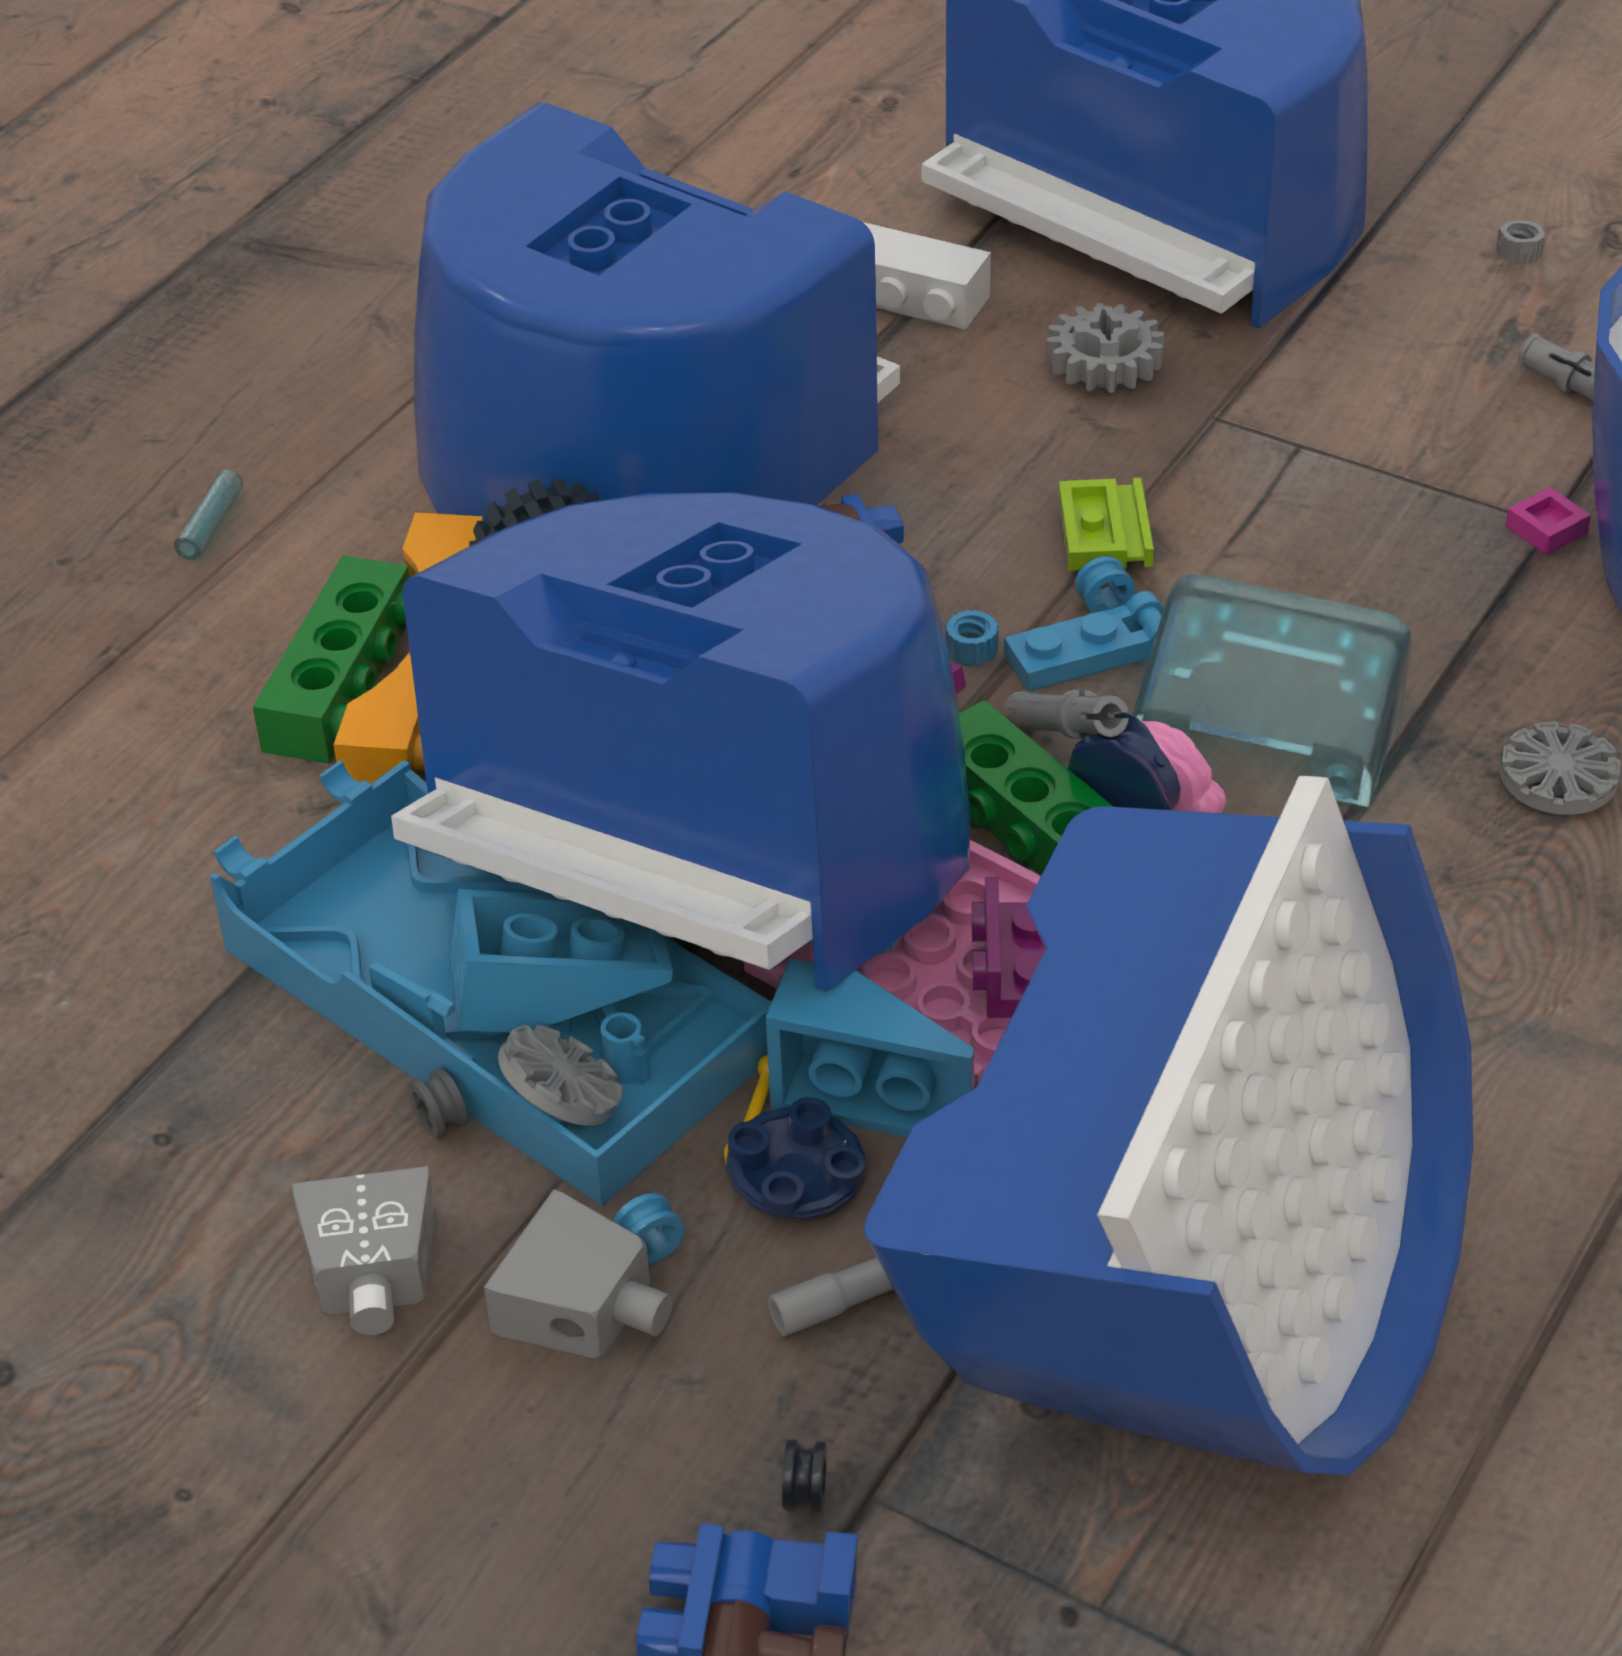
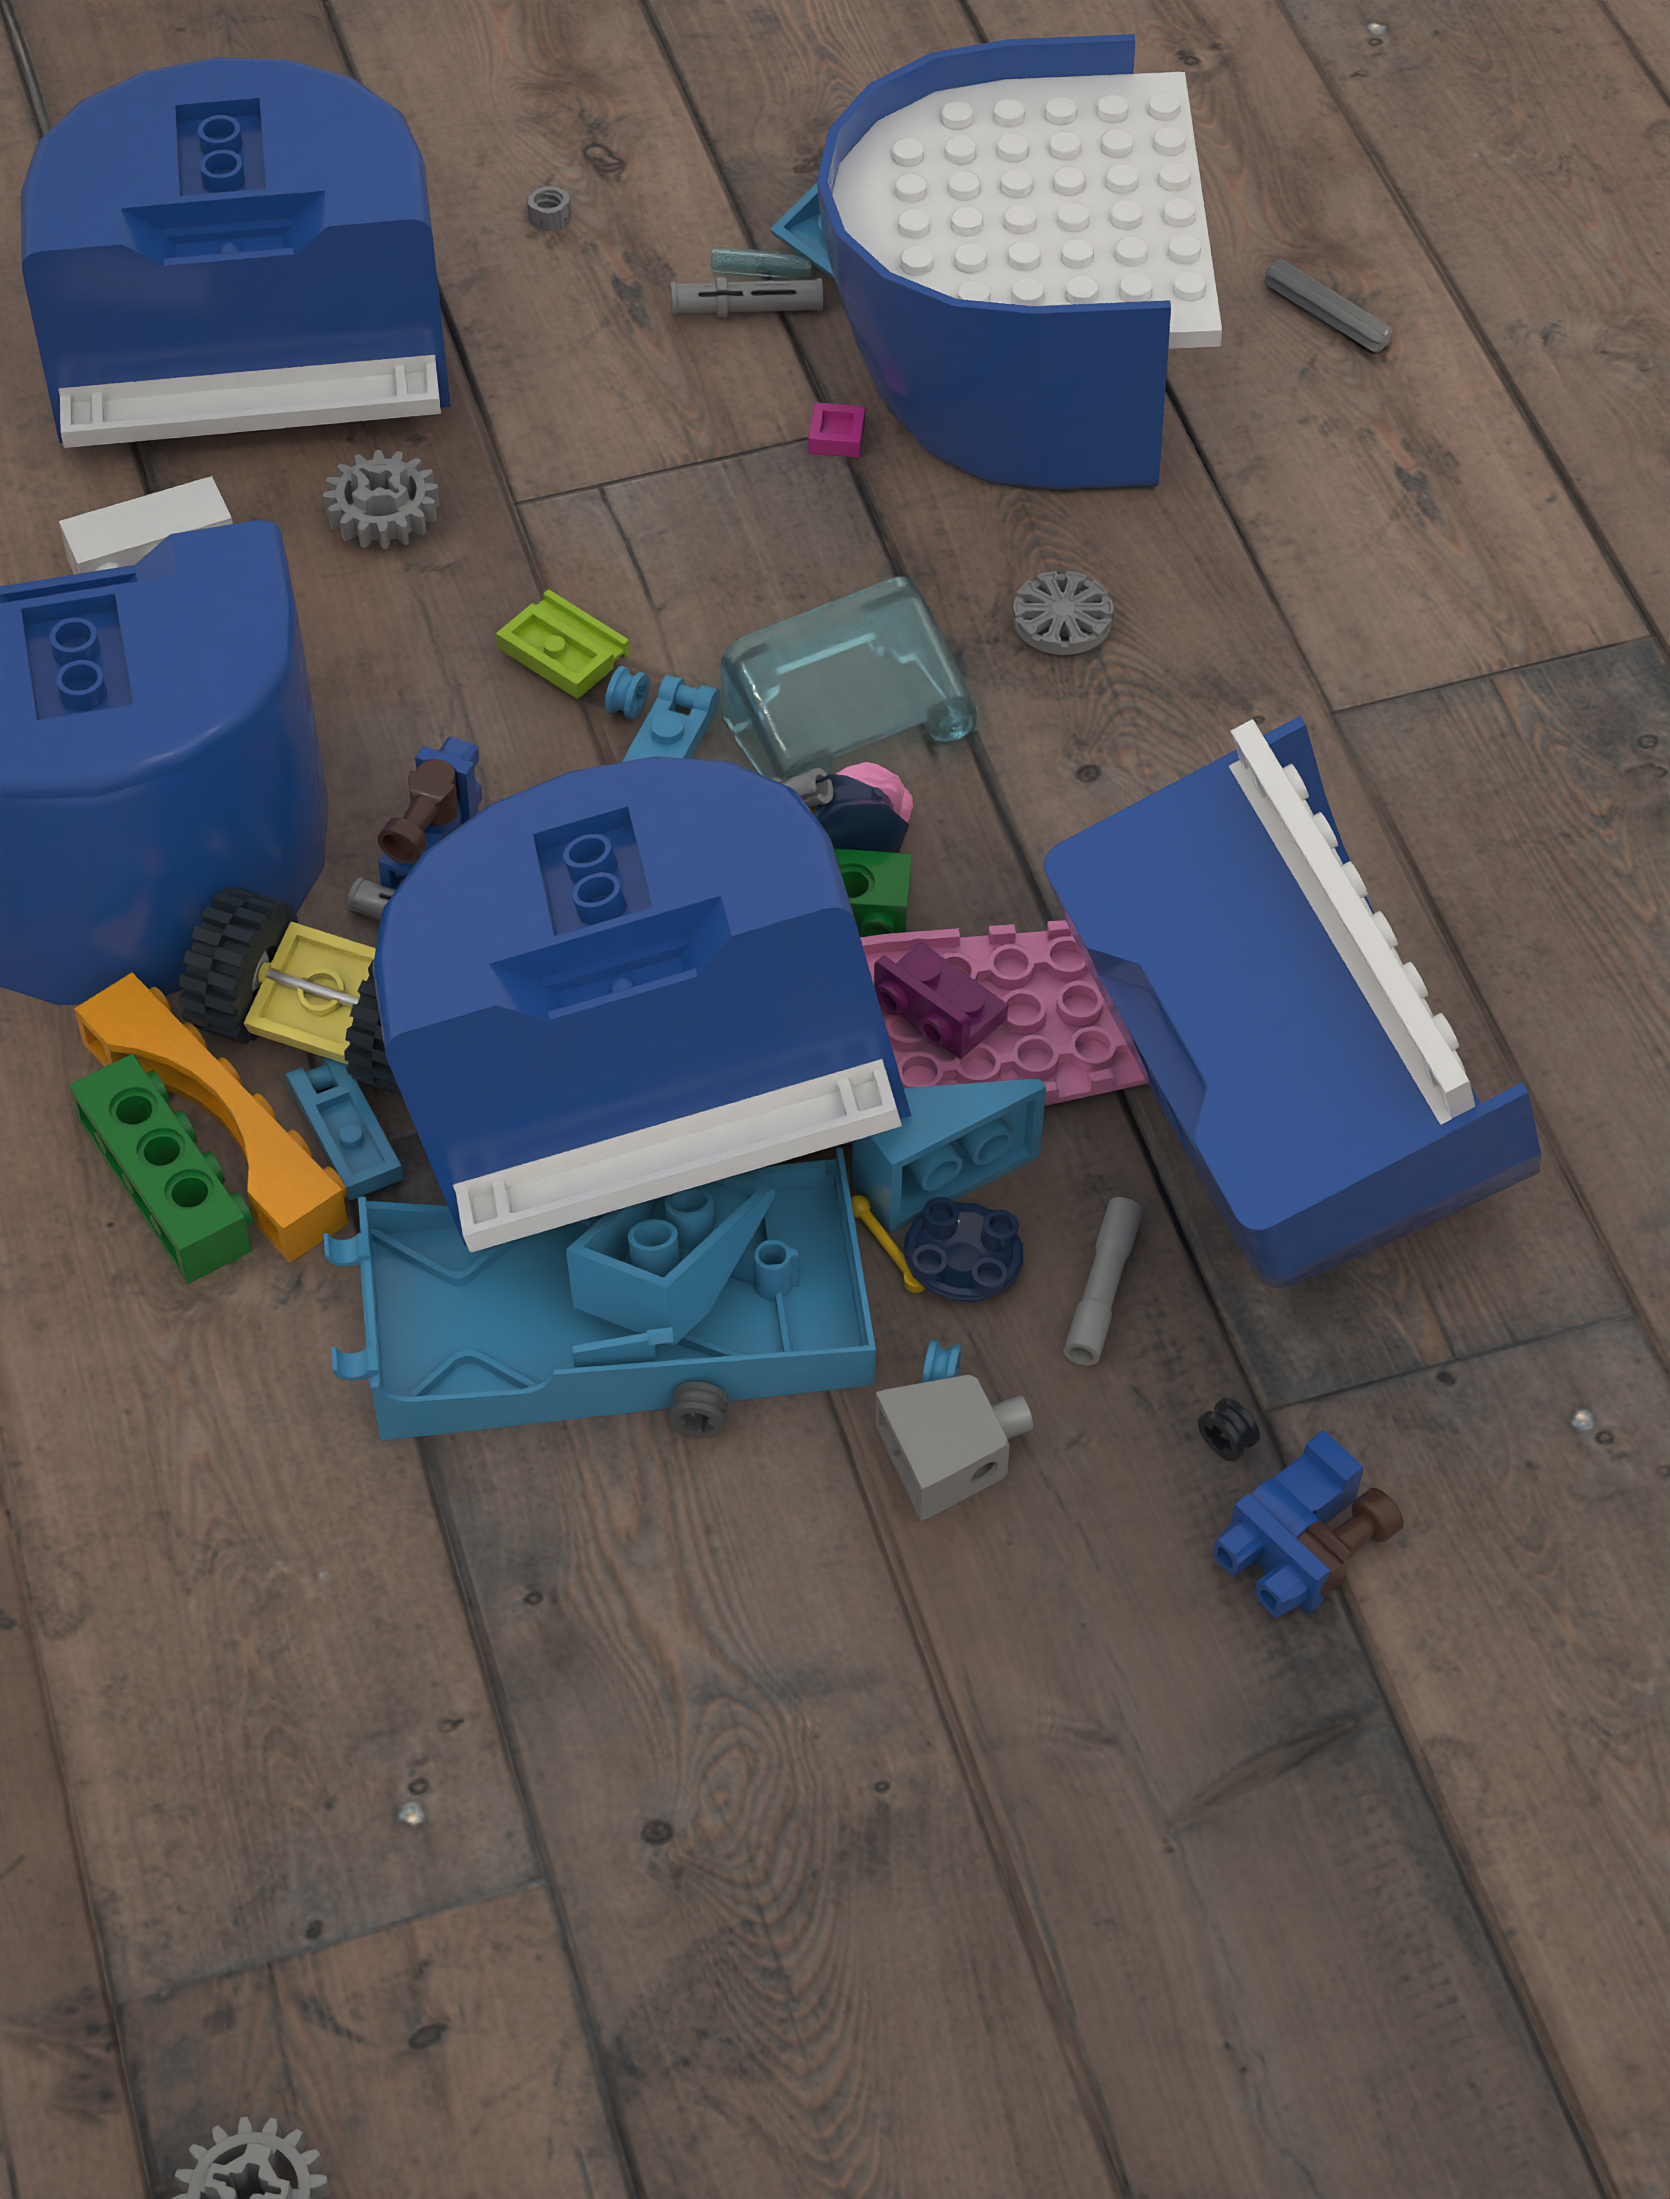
camera: 50 degrees left, 10 degrees up
(368, 1242) = (789, 1535): light grey torso -> none
(560, 1075) = (780, 1318): light grey wheel -> none

